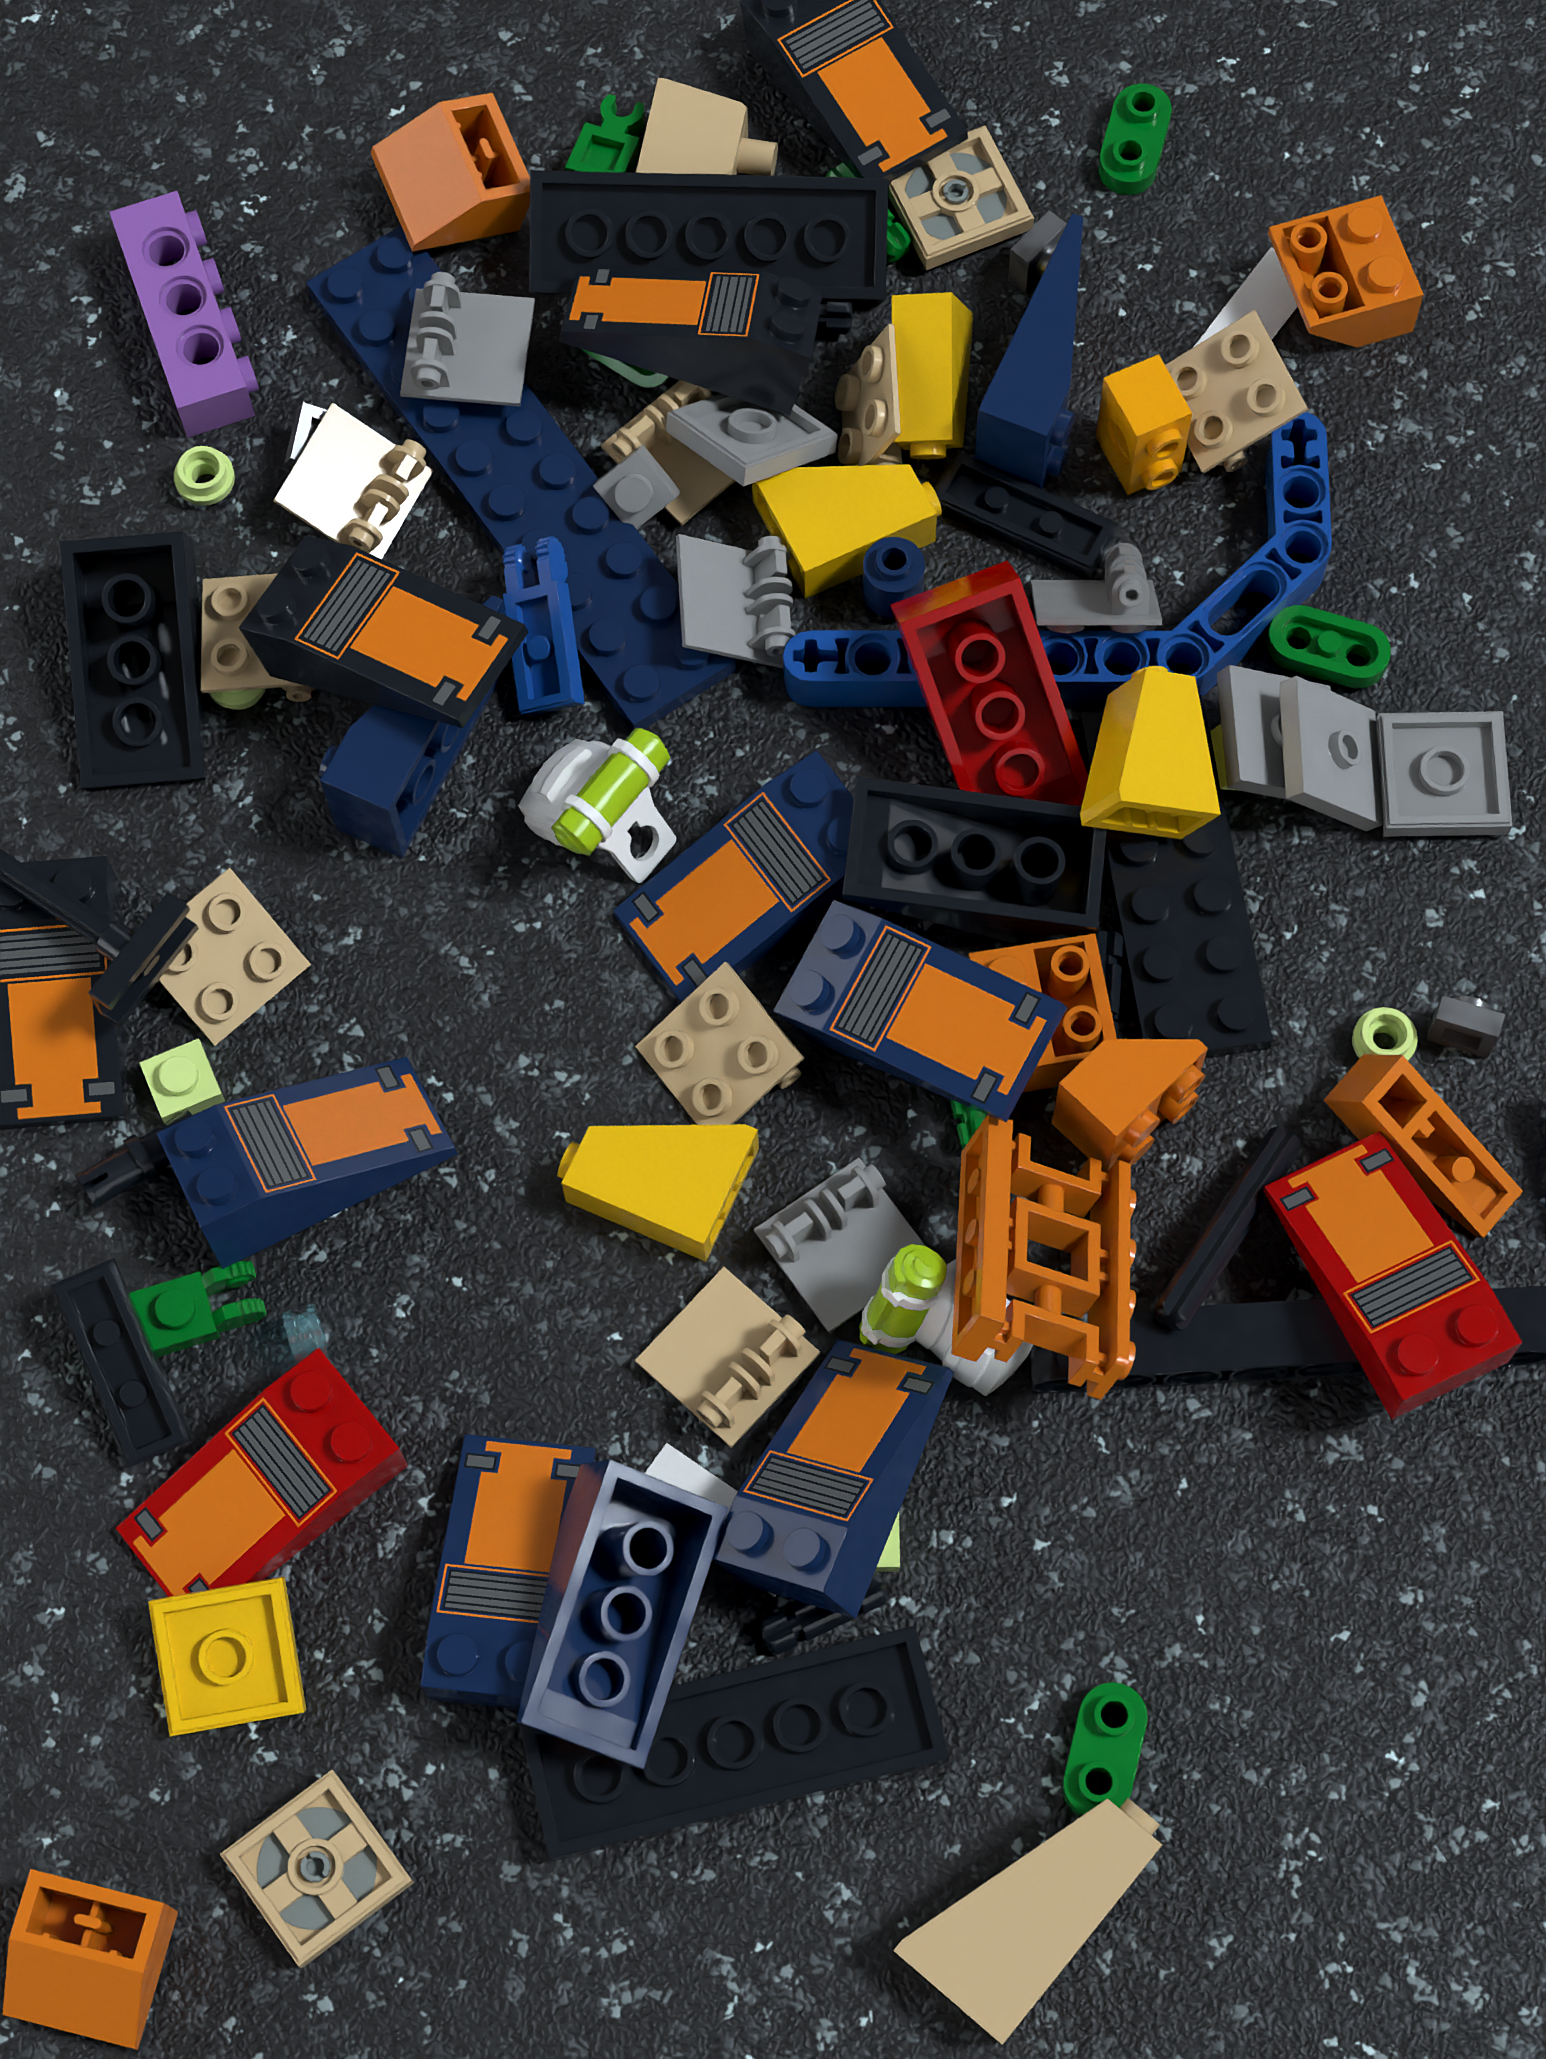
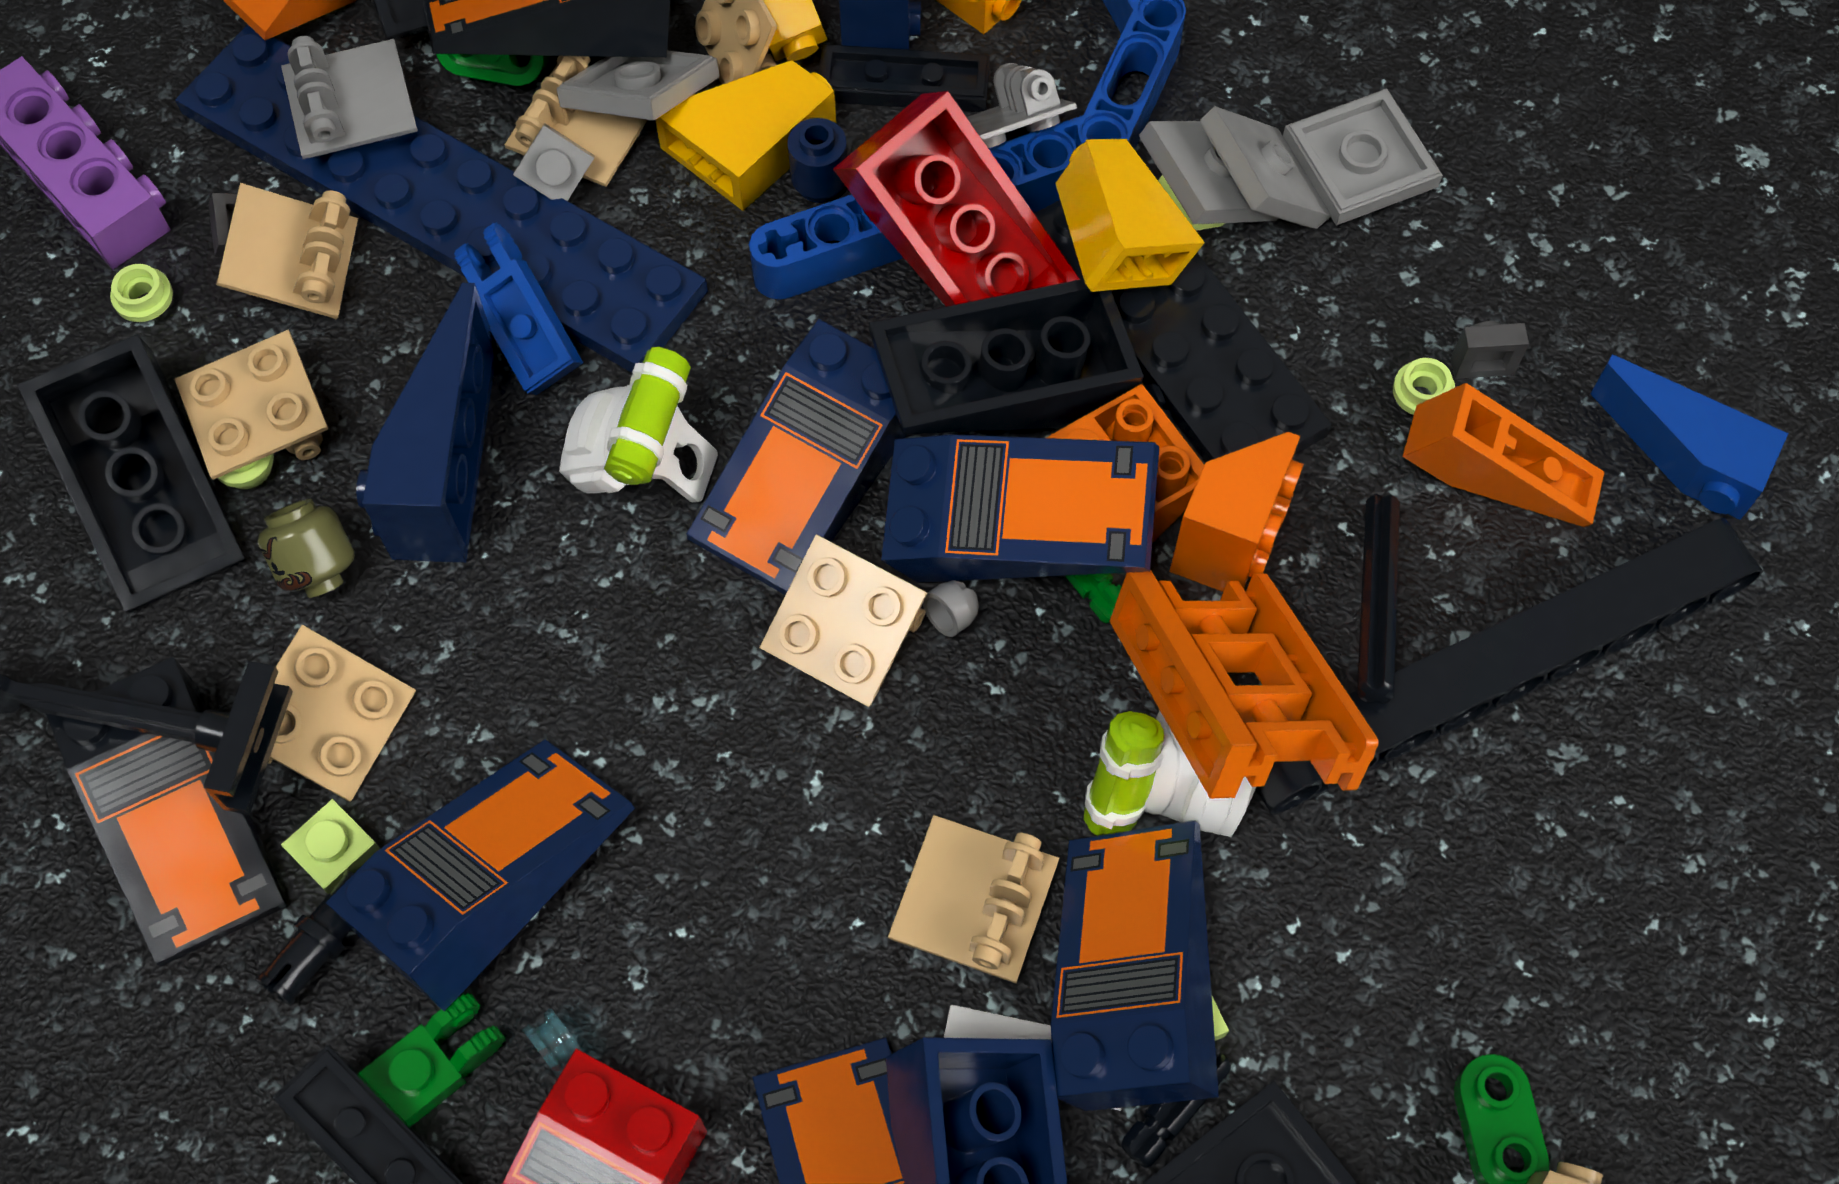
camera: 25 degrees left, 5 degrees down
(260, 793) = (306, 548): none -> olive head
(379, 634) = (365, 352): slope -> none
(661, 1179) = (838, 757): yellow slope -> none
(735, 599) = (687, 224): light grey hinge -> none
(826, 1078) = (951, 607): none -> light grey hinge
(838, 1241) = (1032, 750): light grey hinge -> none
(1328, 642) = (1215, 84): green plate -> none
(1393, 1275) = (1553, 576): slope -> none

